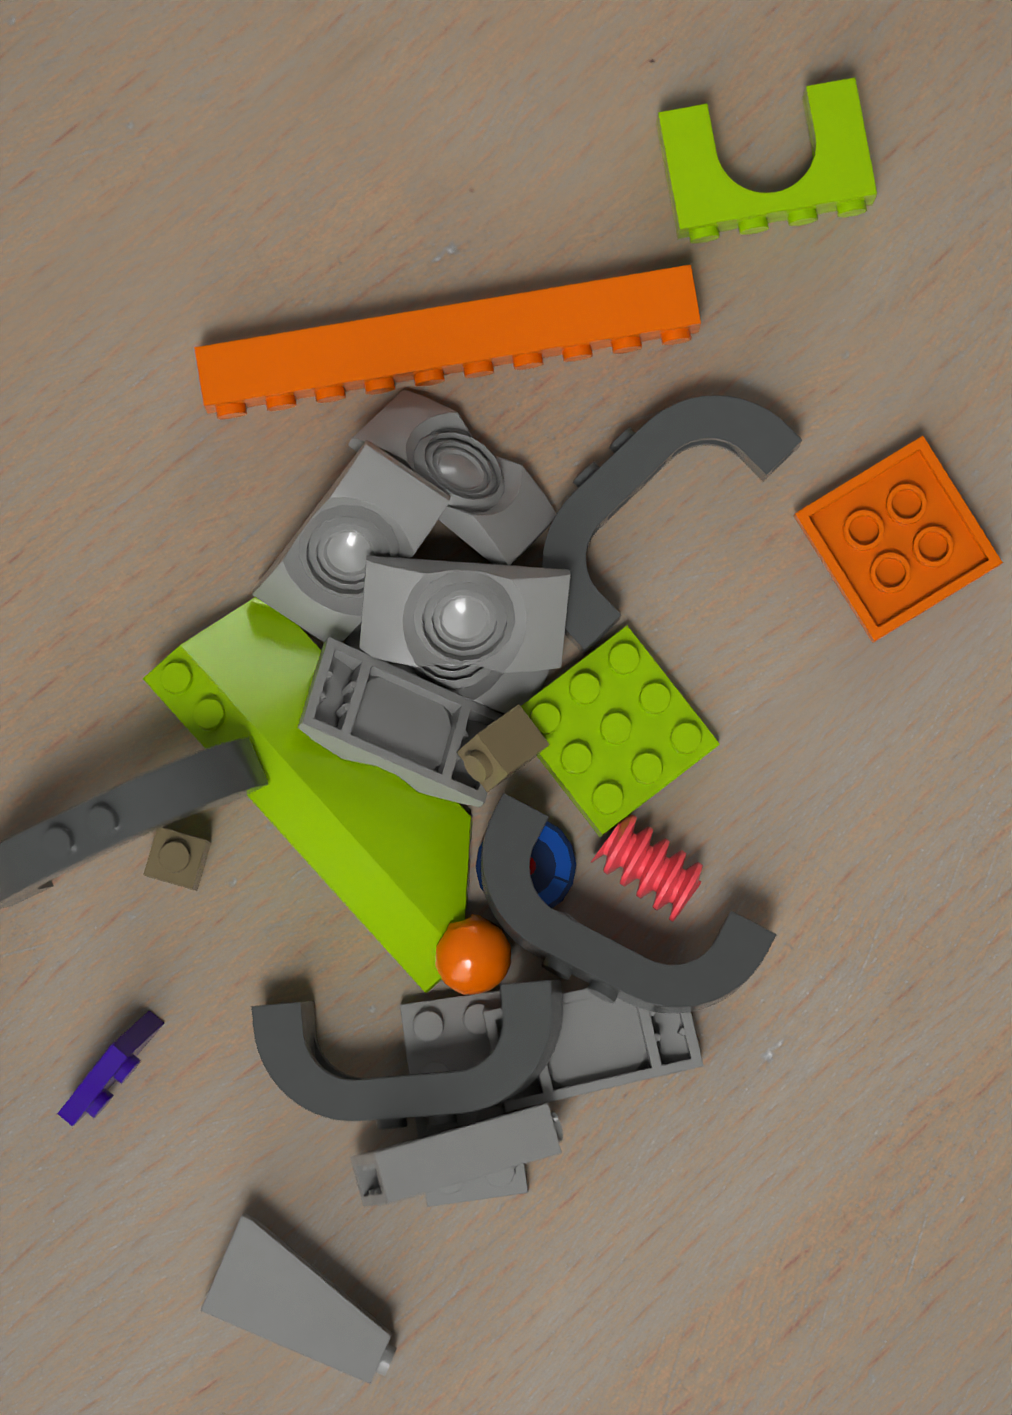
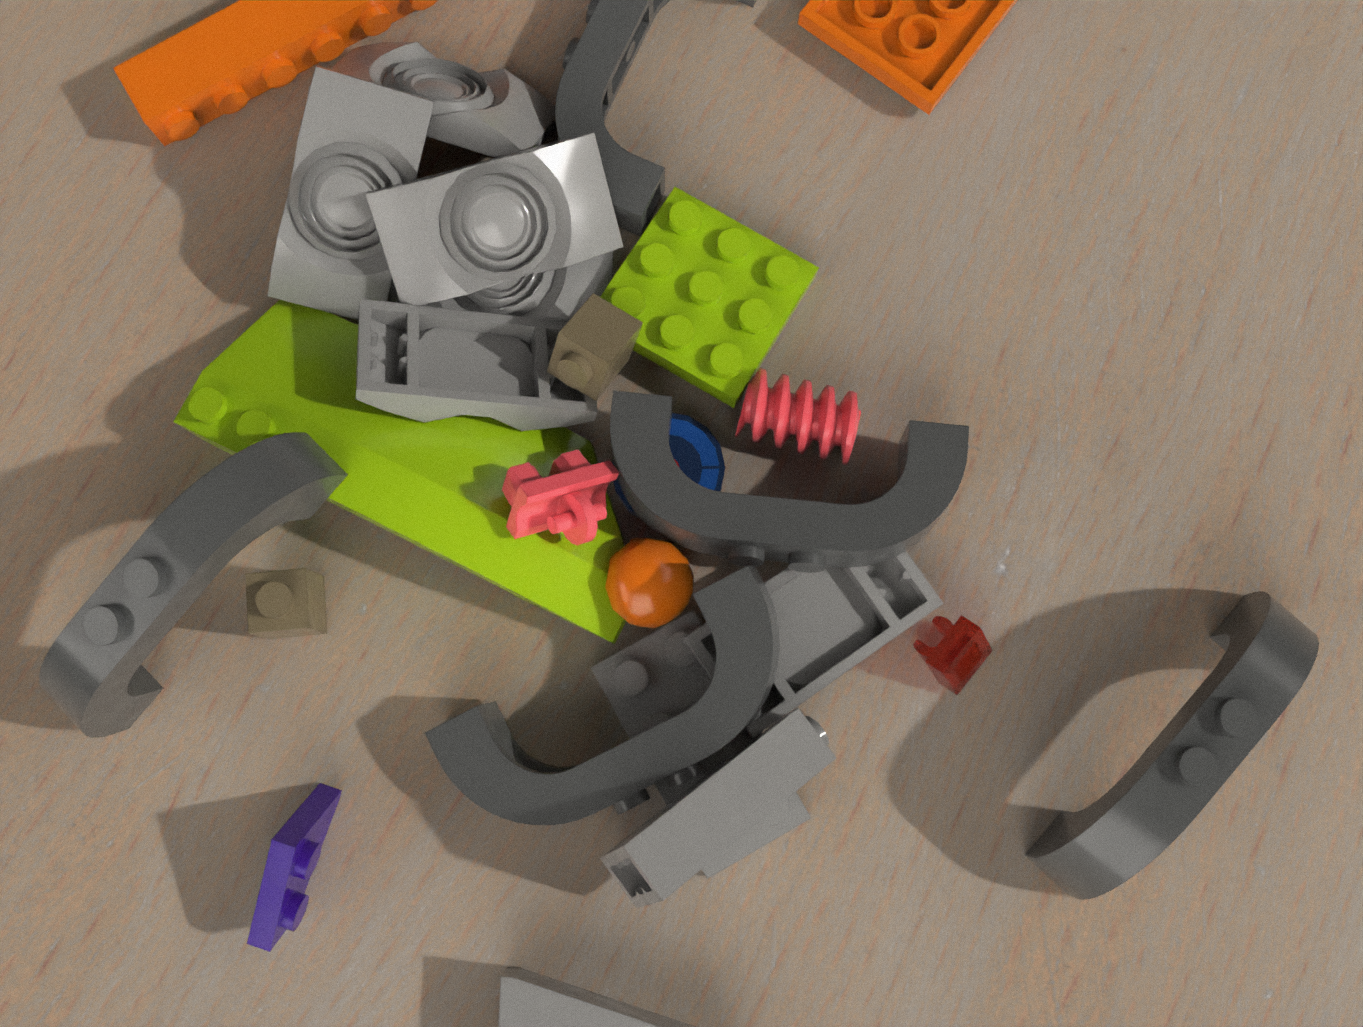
camera: 25 degrees left, 5 degrees down
(428, 871) = (563, 502): none -> coral hips
(698, 1110) = (957, 654): none -> clear red tile
(841, 1253) = (1190, 758): none -> dark grey arch

